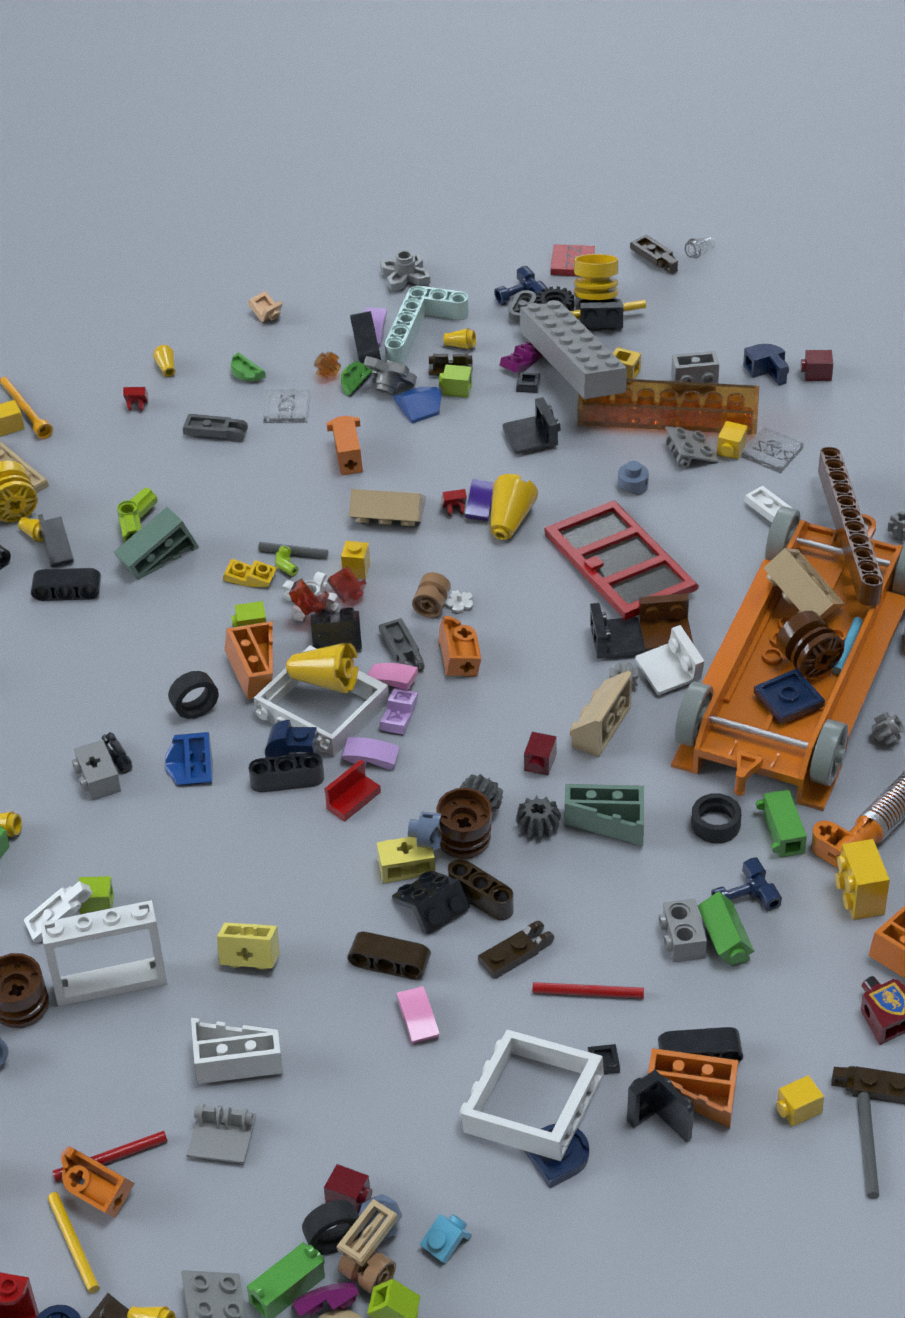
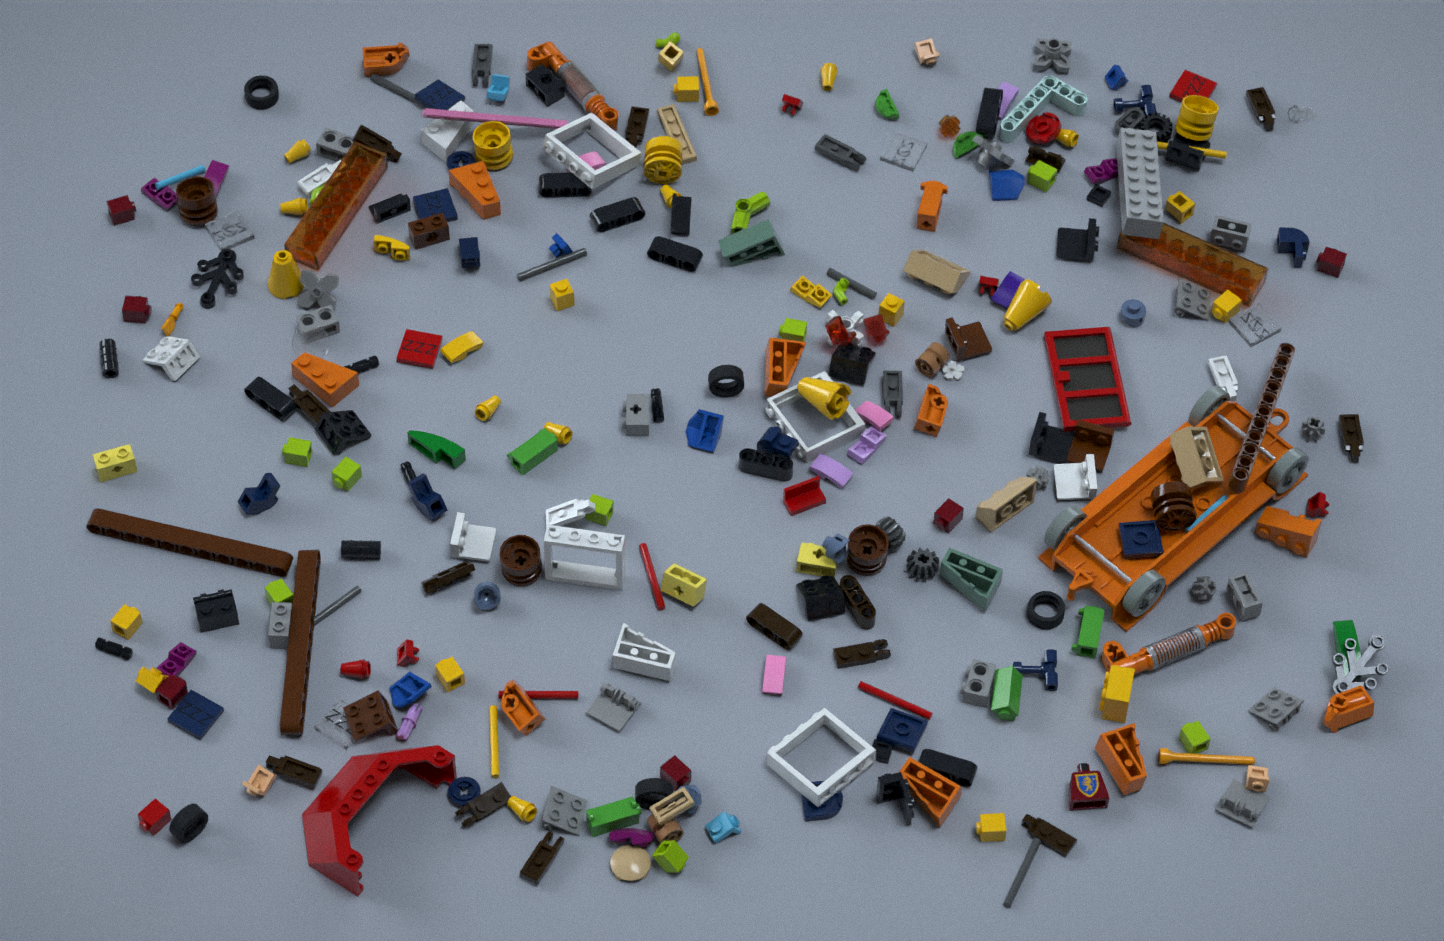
camera: 20 degrees right, 10 degrees up
(200, 952) = (652, 576): none -> red bar
(433, 337) = (1043, 128): none -> red tile
(459, 564) = (967, 340): none -> reddish brown bracket
(485, 271) = (1116, 77): none -> blue tile
(617, 1023) = (902, 730): none -> dark blue tile

